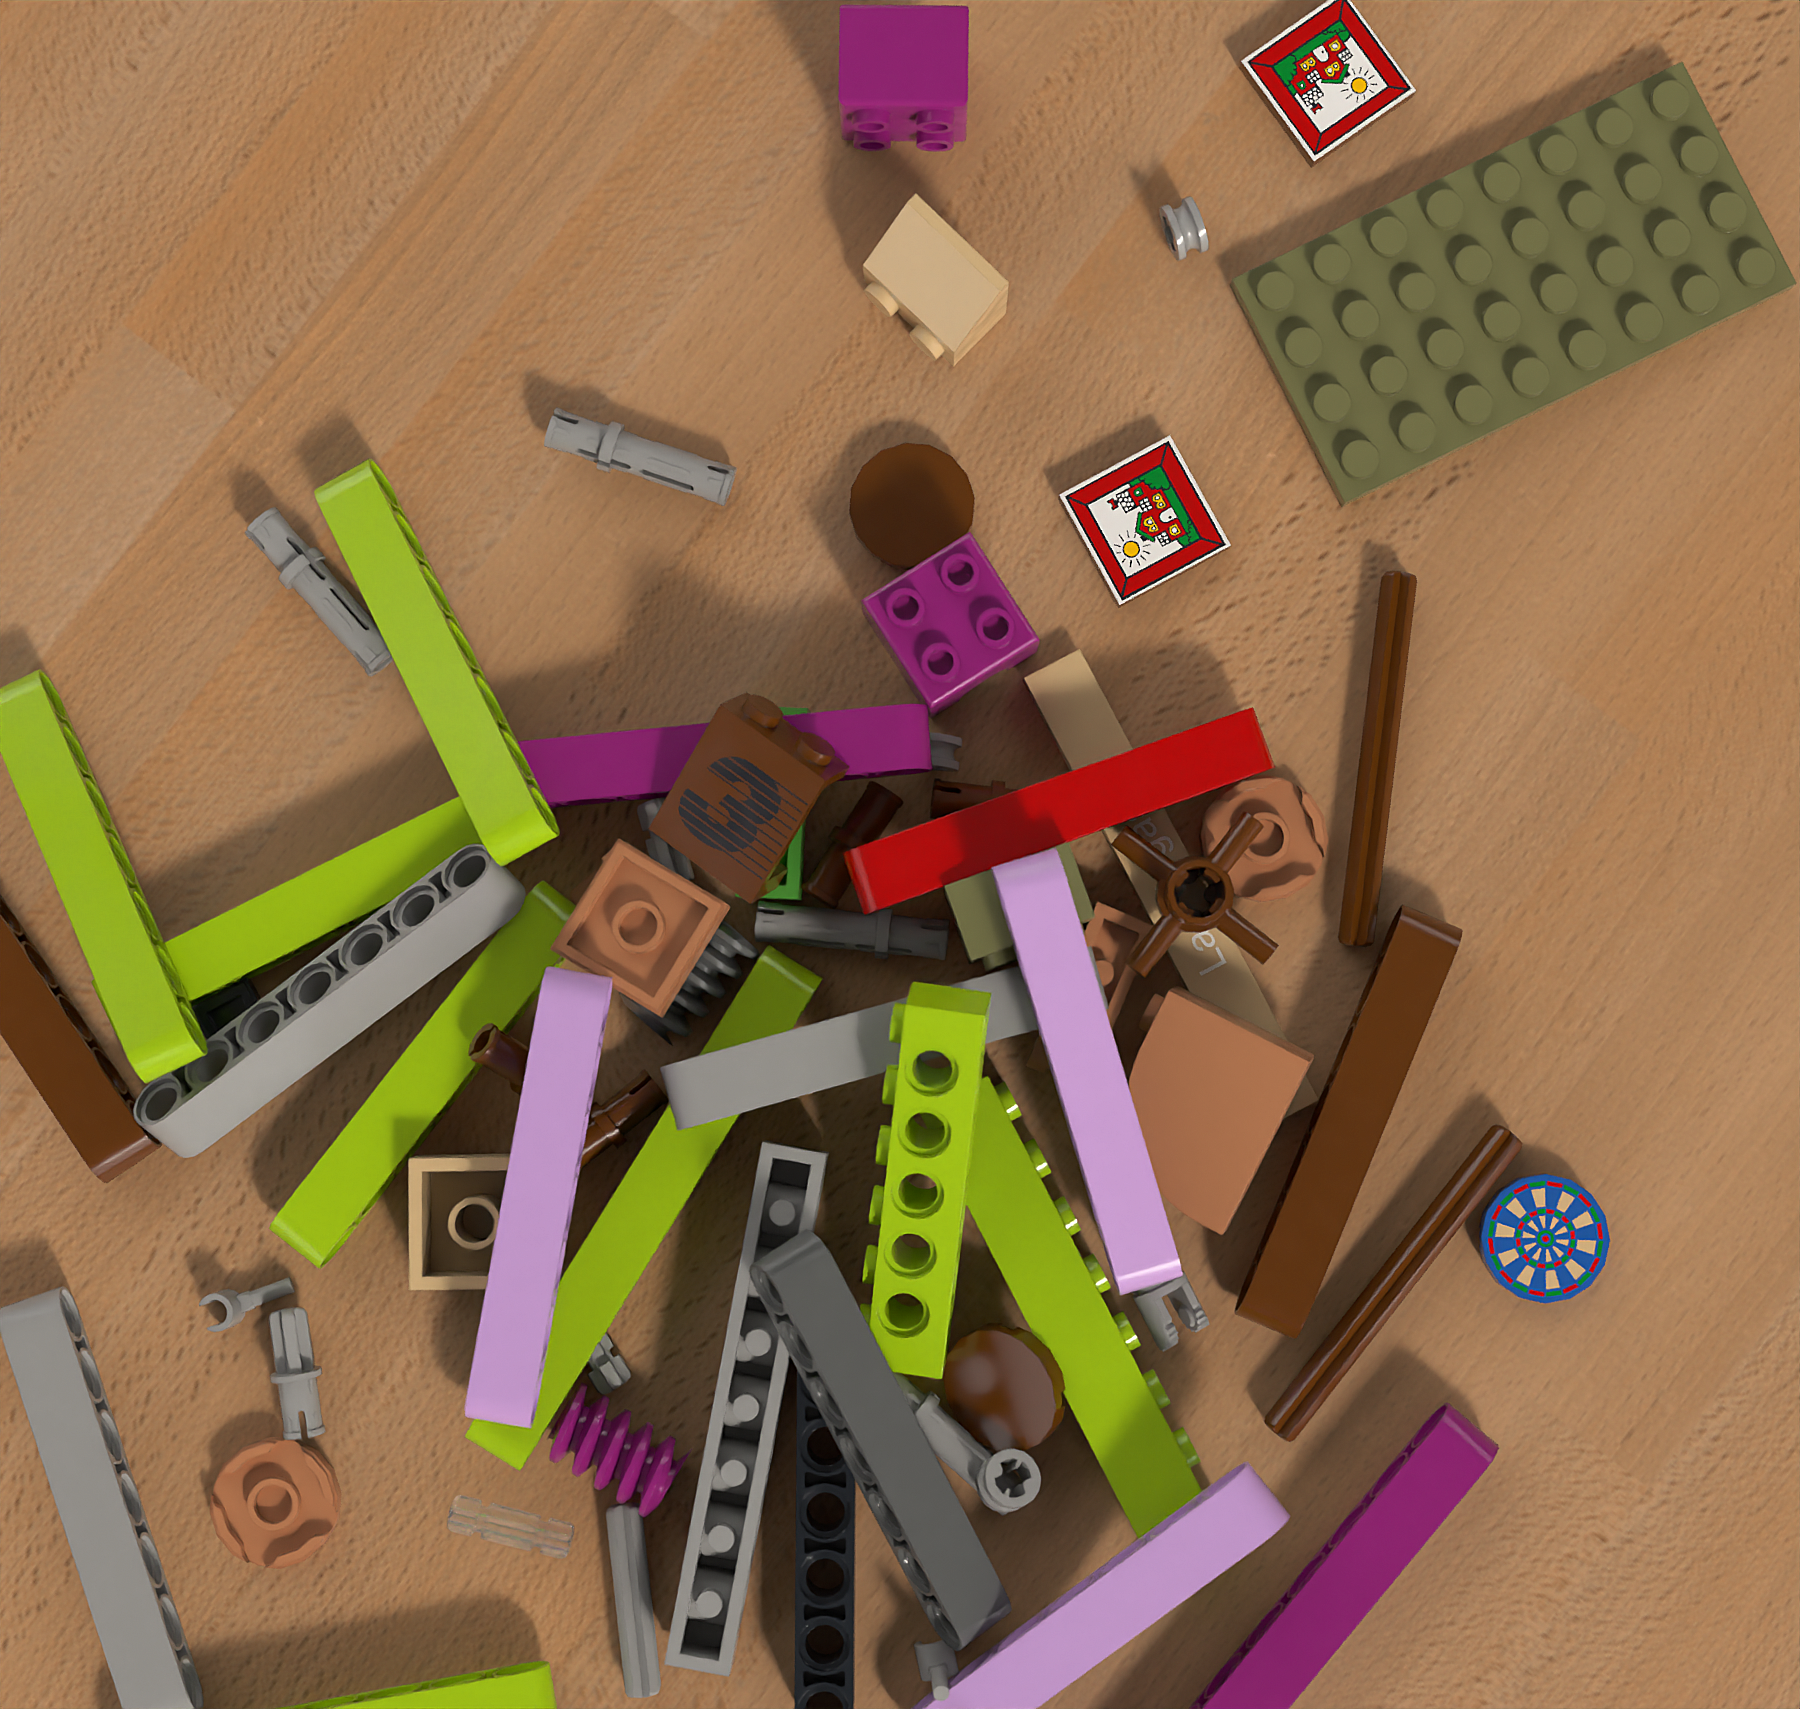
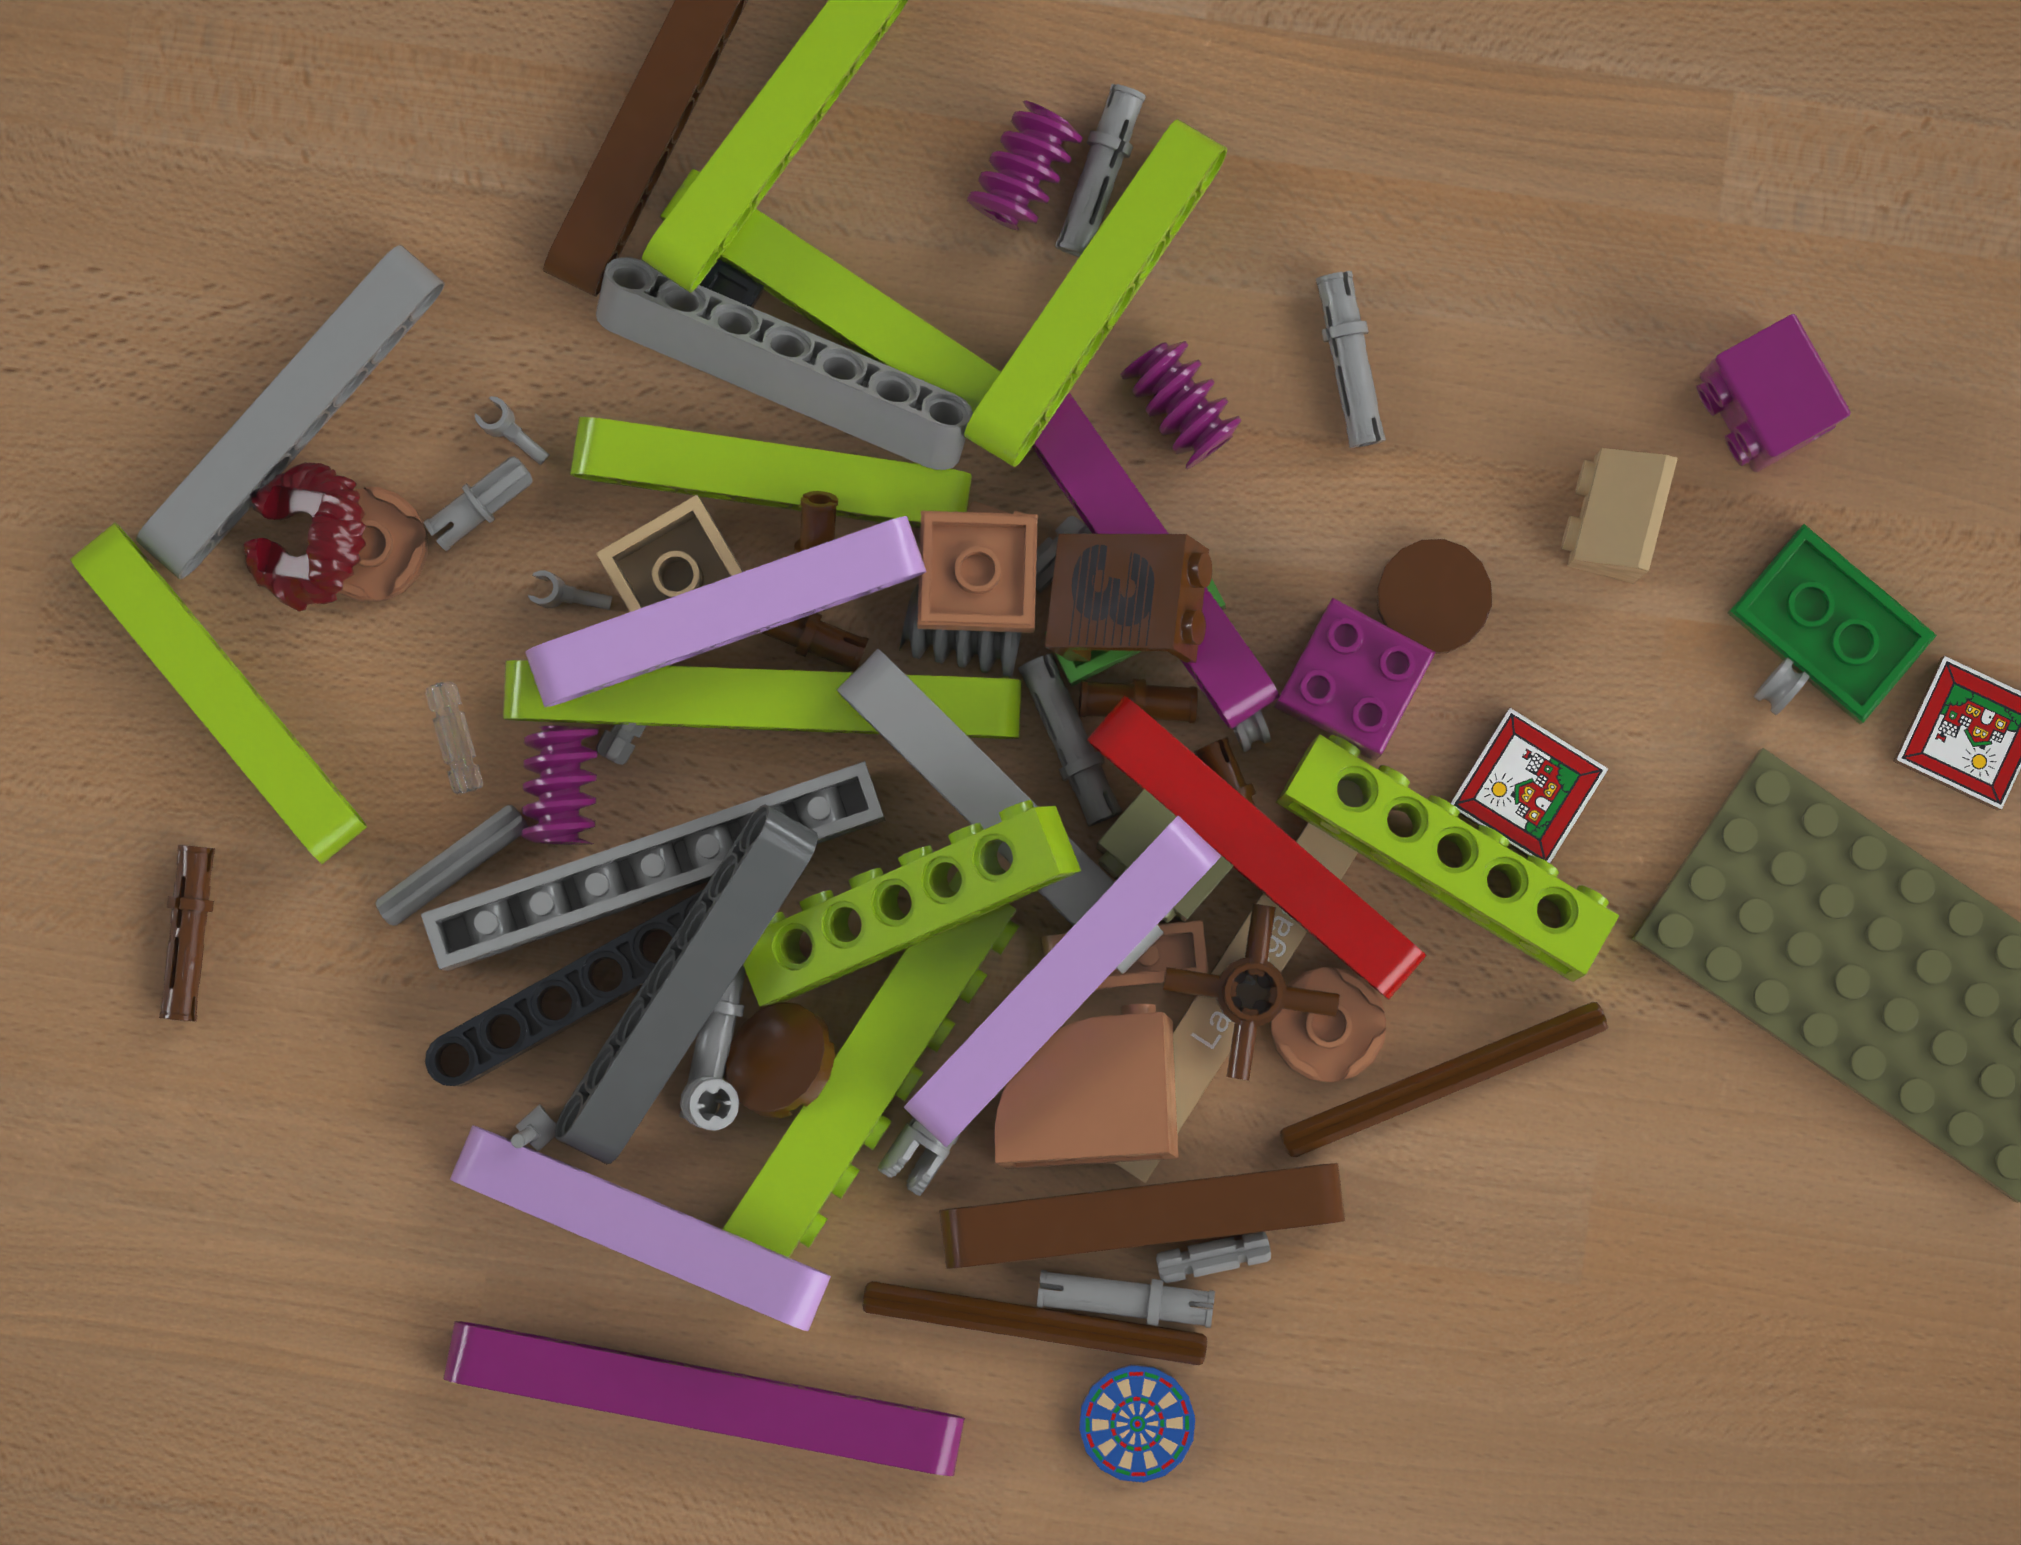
camera: 55 degrees right, 0 degrees up
(246, 1541) = (332, 537): none -> dark red piece
(274, 661) = (1023, 166): none -> magenta piece
(435, 1335) = (568, 594): none -> light grey hand
(587, 639) = (1181, 400): none -> magenta piece
(1150, 149) = (1832, 623): none -> green tile
(1300, 538) = (1583, 911): none -> lime brick
(1419, 1180) = (1126, 1298): none -> light grey pin
(1425, 1076) = (1213, 1257): none -> light grey axle

